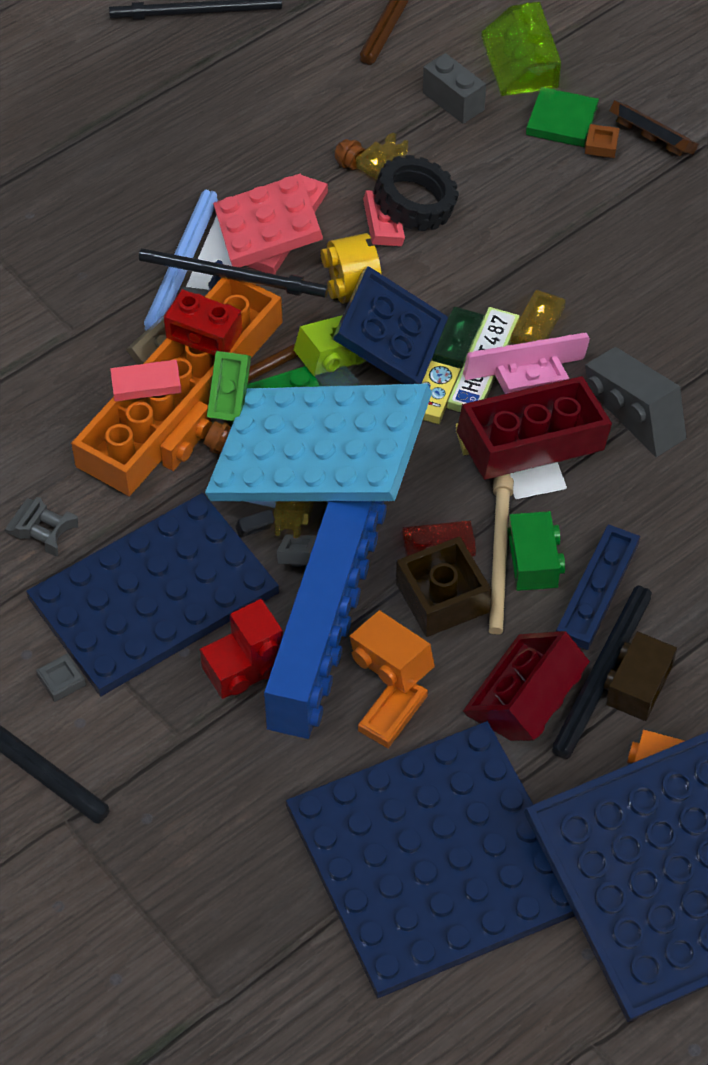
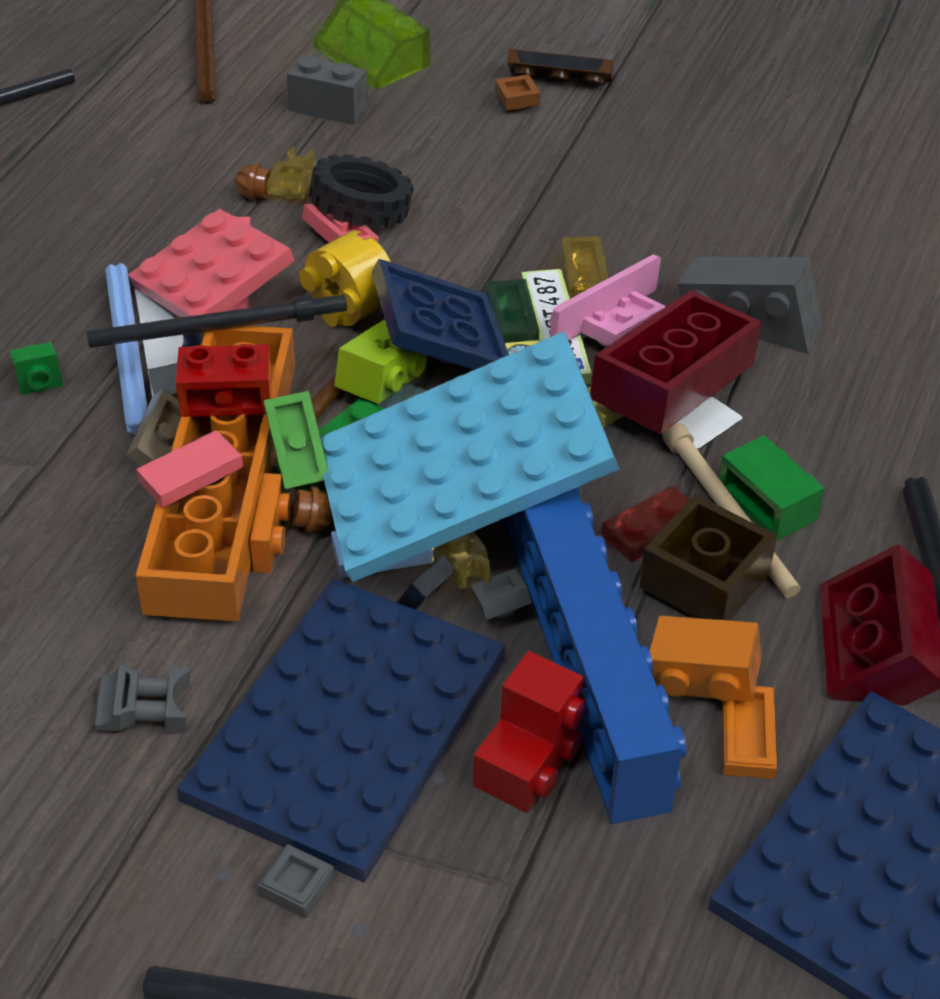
camera: 30 degrees left, 10 degrees down
(113, 255) = (36, 368): none -> green bracket
(562, 116) = (457, 86): green tile -> none
(598, 585) = (864, 491): dark blue plate -> none

